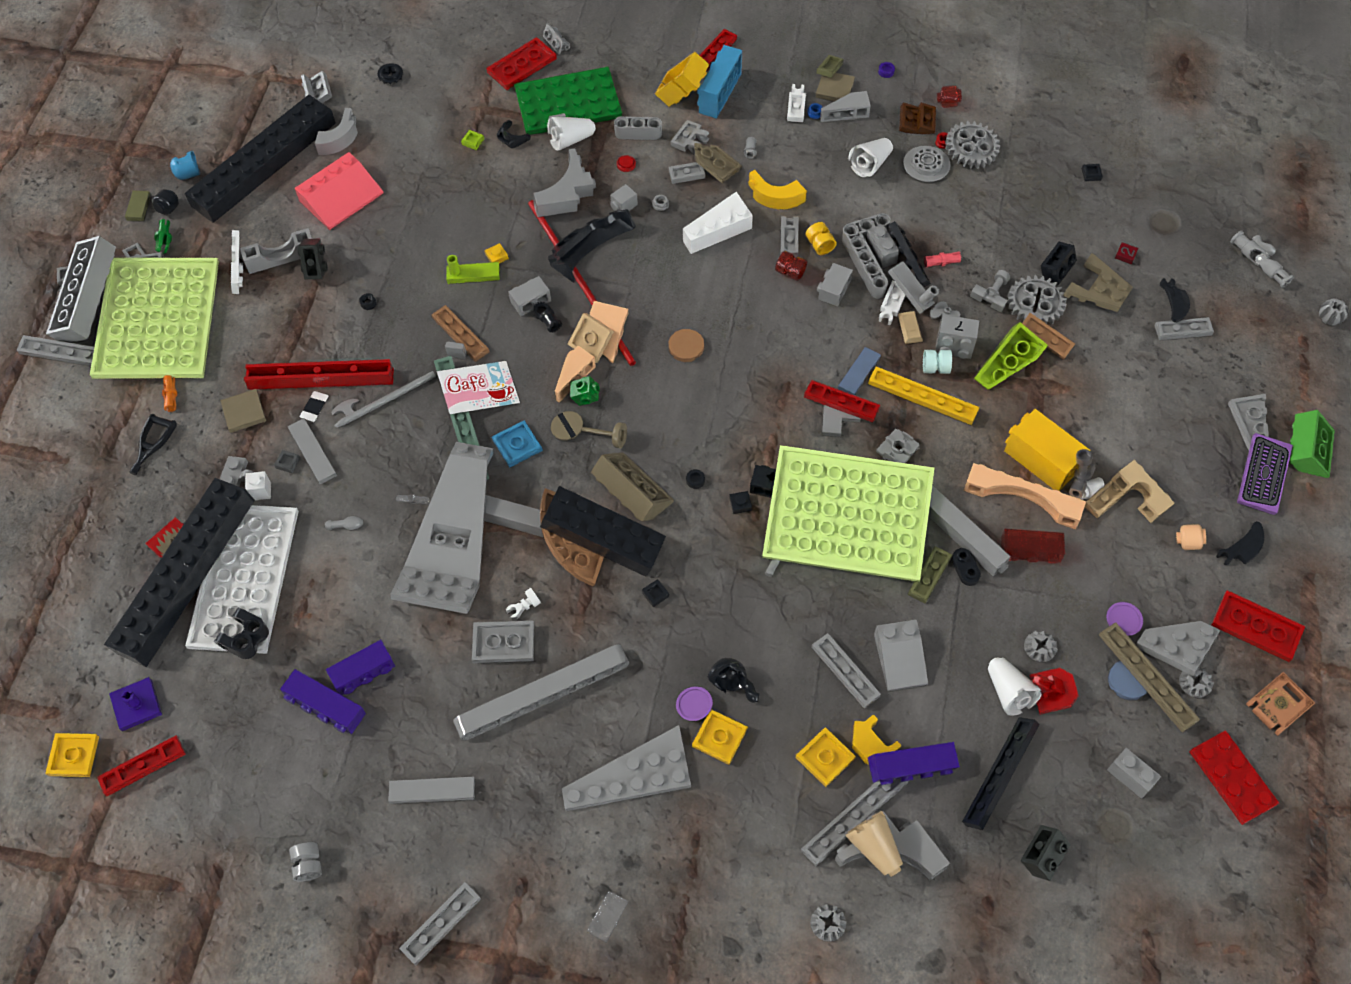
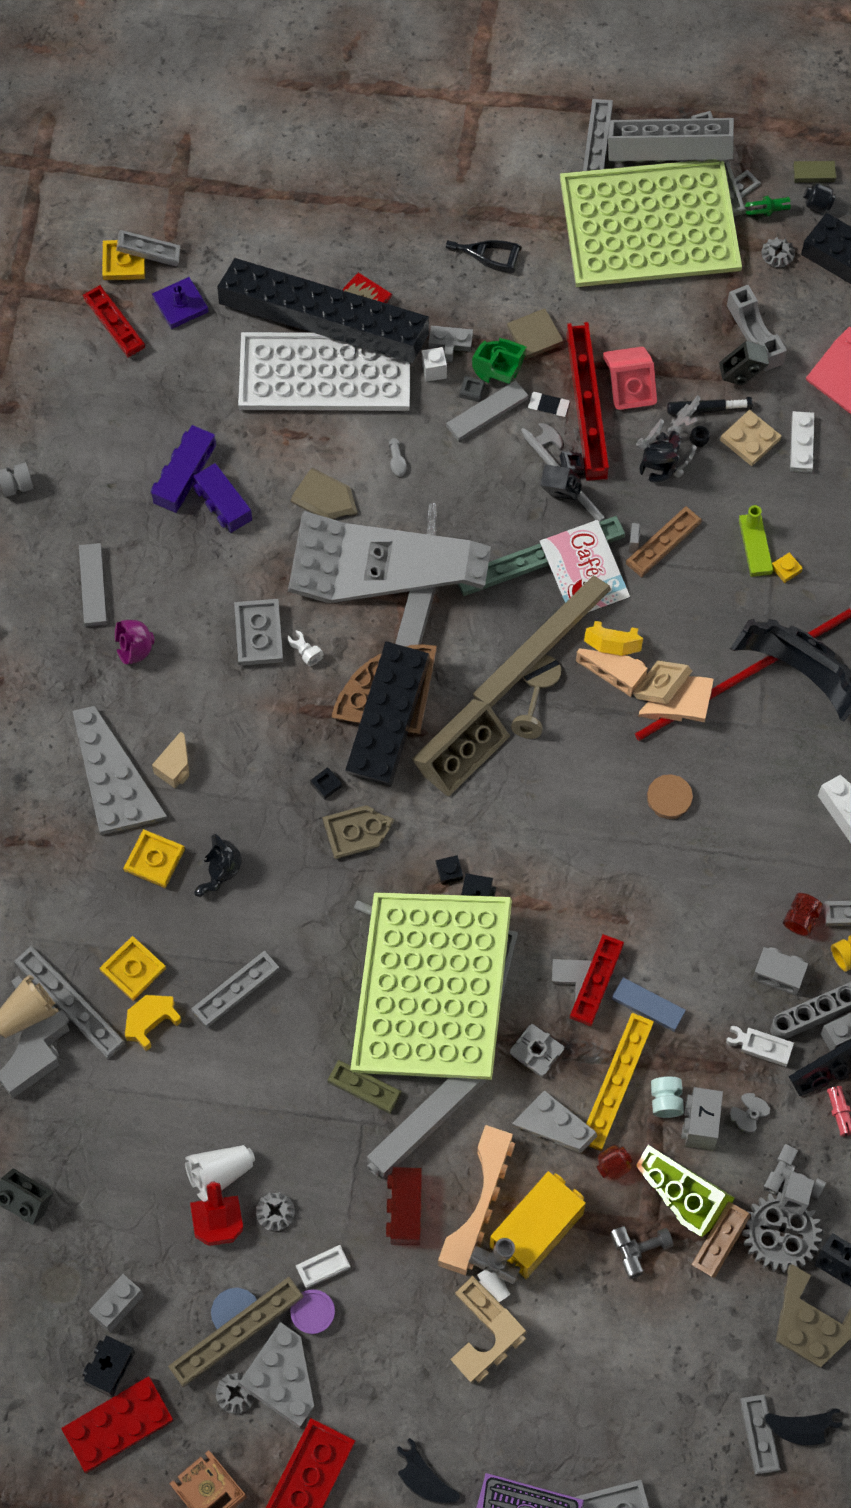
camera: 85 degrees right, 5 degrees up
(67, 728) = (148, 248): none -> light grey tile
(169, 393) = (550, 257): orange pin -> none
(208, 241) = (783, 258): none -> light grey gear
(236, 266) = (719, 289): white wing -> none
(247, 636) = (248, 384): black piece -> none
(267, 434) = (498, 360): none -> green brick
(305, 336) = (631, 377): none -> coral piece
(339, 308) = (710, 405): none -> black piece
(372, 584) = (324, 496): none -> dark tan tile
(376, 268) = (750, 437): none -> tan plate
(376, 390) = (573, 461): none -> black tile
(380, 317) = (663, 452): none -> helmet
(386, 235) = (802, 442): none -> white plate
(399, 391) = (560, 482): none -> black brick
(501, 749) = (134, 641): none -> magenta cylinder
(516, 443) = (512, 620): dark azure tile -> none
(528, 294) = (723, 609): light grey brick -> none
(540, 692) = (201, 677): light grey beam -> none
(542, 421) = (542, 641): none -> dark tan tile
(547, 317) = (693, 633): black connector -> none
(550, 369) = (613, 641): none -> yellow piece
(584, 391) = (585, 682): green brick -> none
(627, 715) = (173, 763): none -> tan slope
(694, 703) = (190, 829): medium lavender piece -> none
(695, 479) = (478, 818): black tile -> none
(702, 571) = (356, 830): none -> dark tan tile
(901, 655) = (255, 1049): light grey slope -> none
(910, 327) = (725, 1069): tan tile -> none
(912, 288) = (782, 1065): light grey piece -> none
(913, 762) = (122, 1056): dark purple brick -> none
(959, 437) = (555, 1122): none -> light grey wing
(966, 565) = (377, 1129): black plate -> none
(989, 400) = (614, 1162): none -> clear red head
(1000, 773) = (116, 1156): black plate -> none
(1013, 282) = (796, 1193): none -> light grey brick
(1056, 393) = (632, 1251): none -> flat silver bar
(1084, 611) = (323, 1266): none -> white tile
(1191, 537) = (428, 1404): light nougat head -> none
(1199, 781) = (120, 1358): none -> black brick

